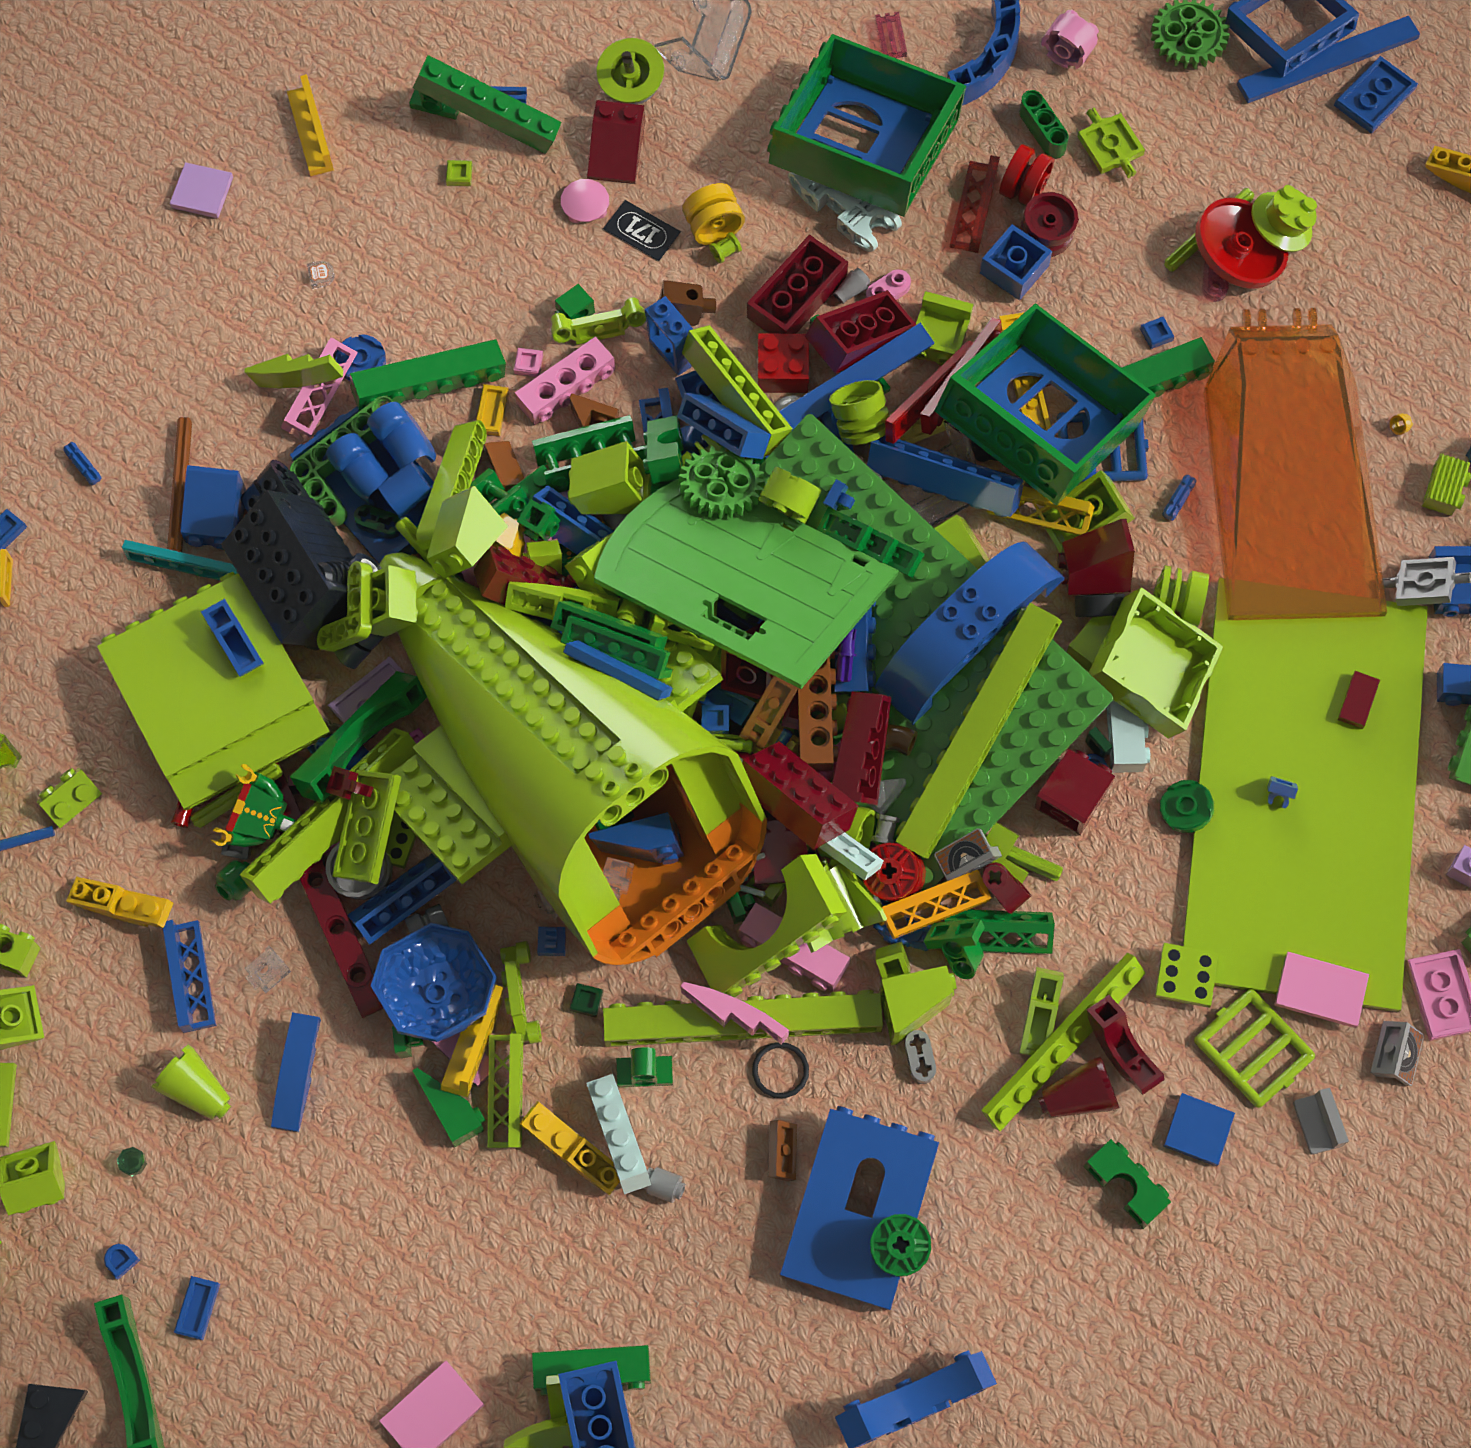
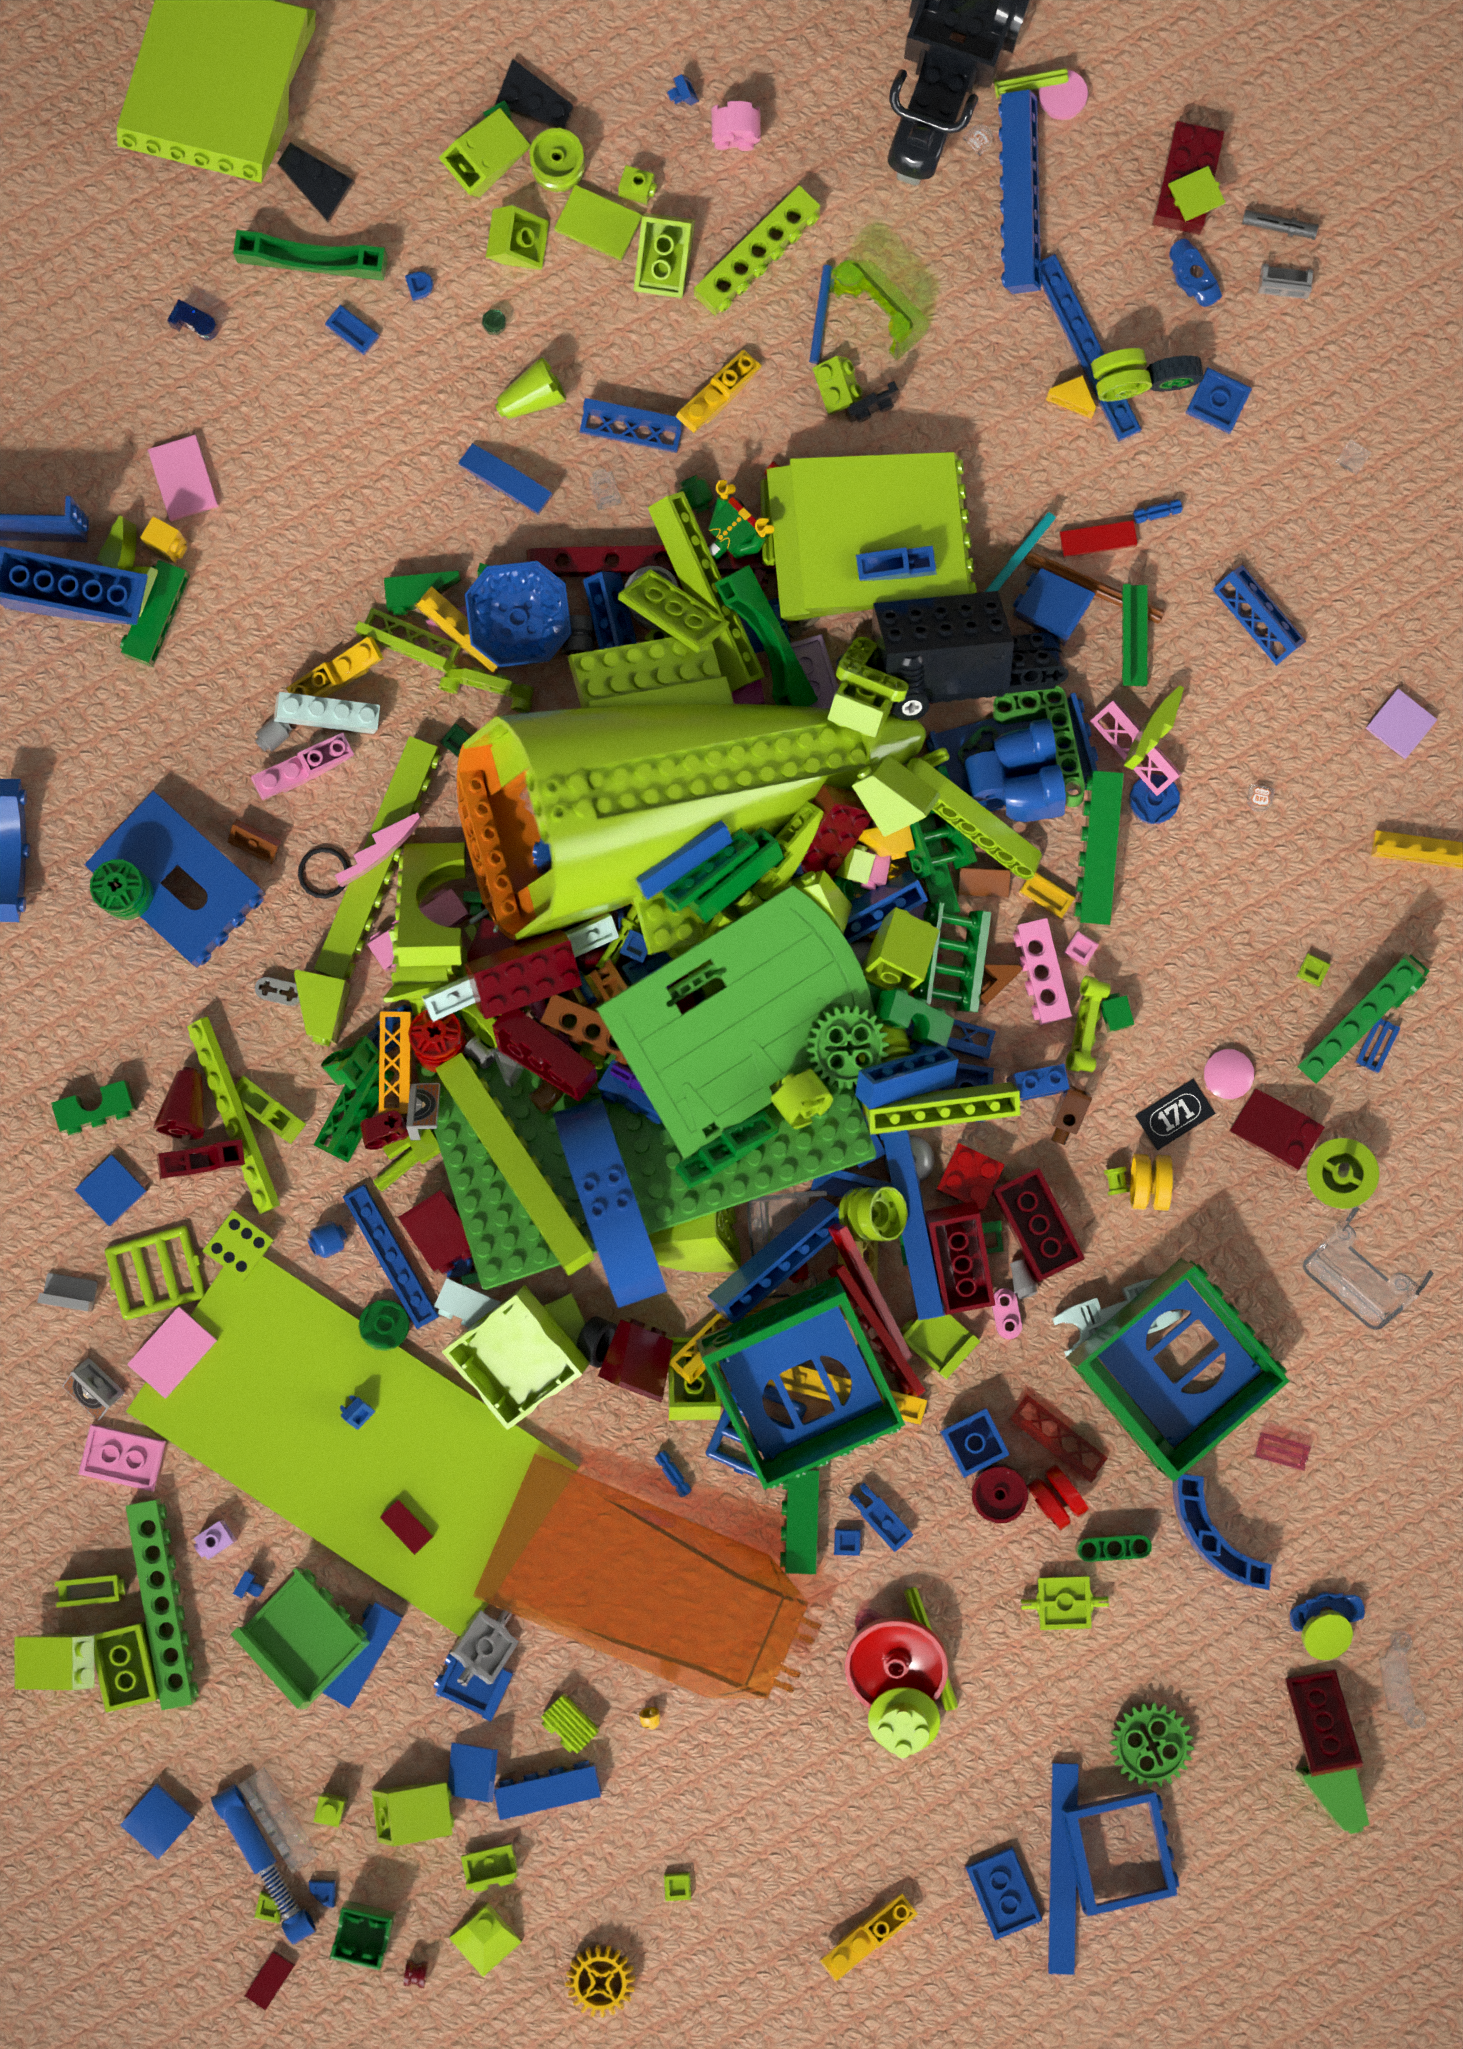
camera: 115 degrees right, 15 degrees up
(71, 747) = (872, 403): none -> black wing
(130, 503) = (1098, 539): none -> red tile
(140, 335) = (1266, 610): none -> blue fence
(213, 431) = (1134, 634): none -> green fence
(343, 783) = (717, 604): dark red plate -> none
(509, 1391) = (164, 540): none -> yellow brick
(539, 521) = (889, 866): green brick -> none
(644, 1069) = (373, 760): green tile -> none
(683, 1137) = (303, 767): none -> bright pink slope
(837, 496) = (779, 1141): blue tile -> none
(892, 960) = (363, 1003): lime brick -> none
(1070, 40) = (1190, 1618): bright pink brick -> none
(1118, 833) = (390, 1256): none -> blue tile
(1122, 310) = (882, 1519): none -> blue hinge
(1136, 895) = (327, 1239): none -> blue head
(1183, 596) = (572, 1418): lime wheel -> none

